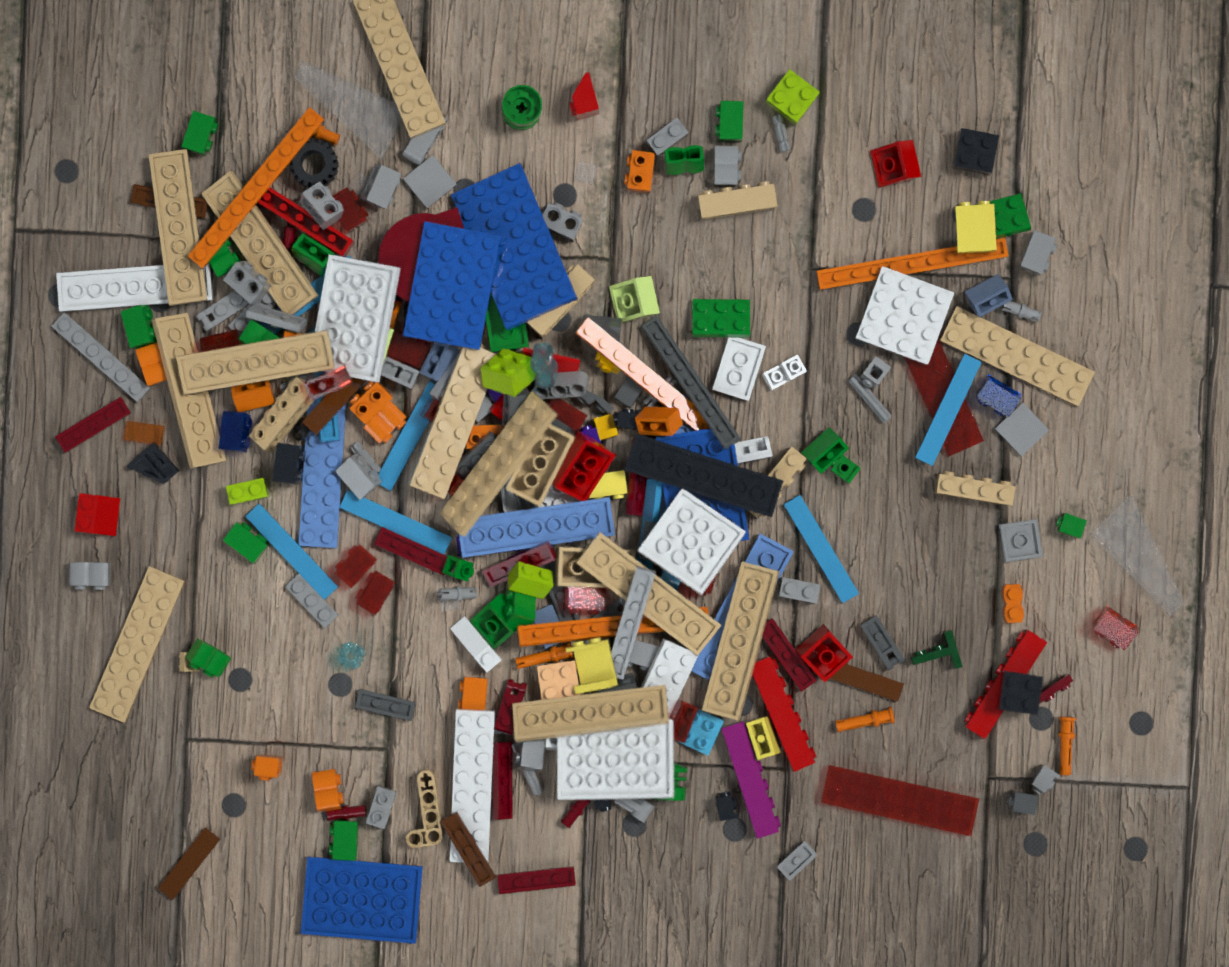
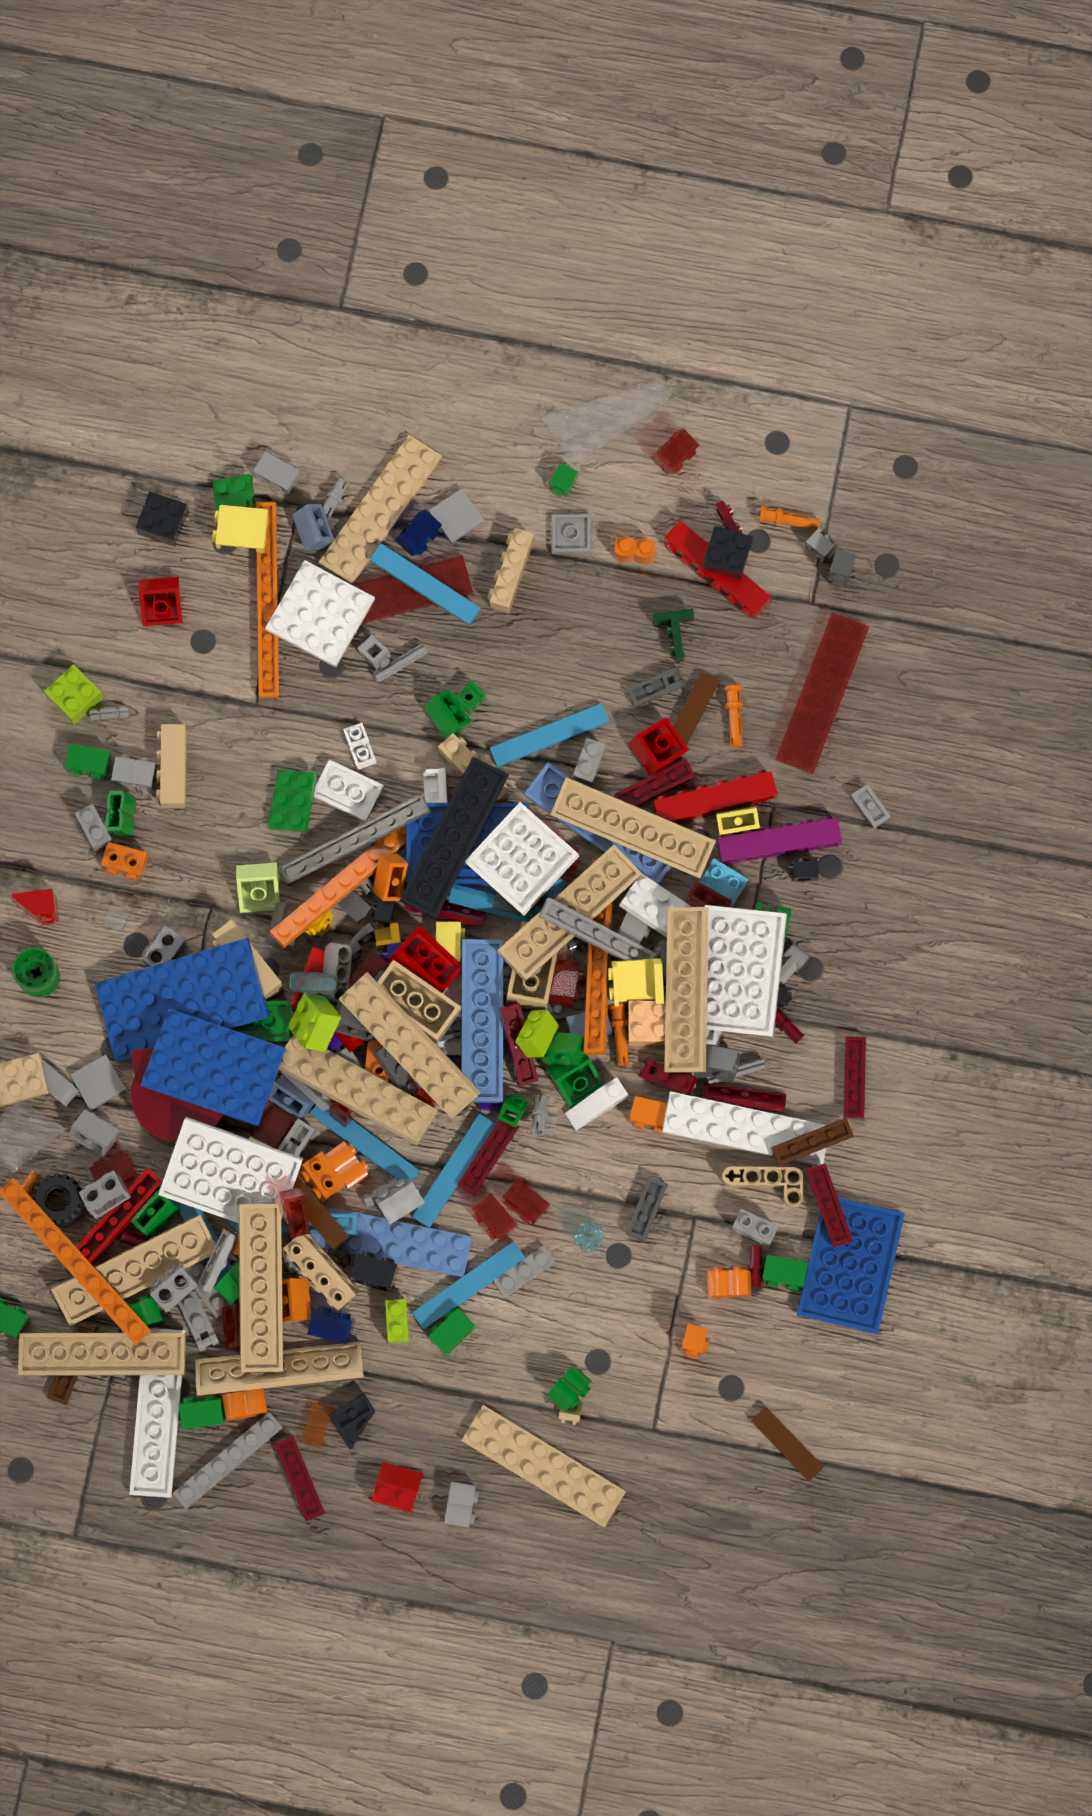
camera: 80 degrees left, 10 degrees down
(410, 873) = (829, 1205): none -> dark red plate

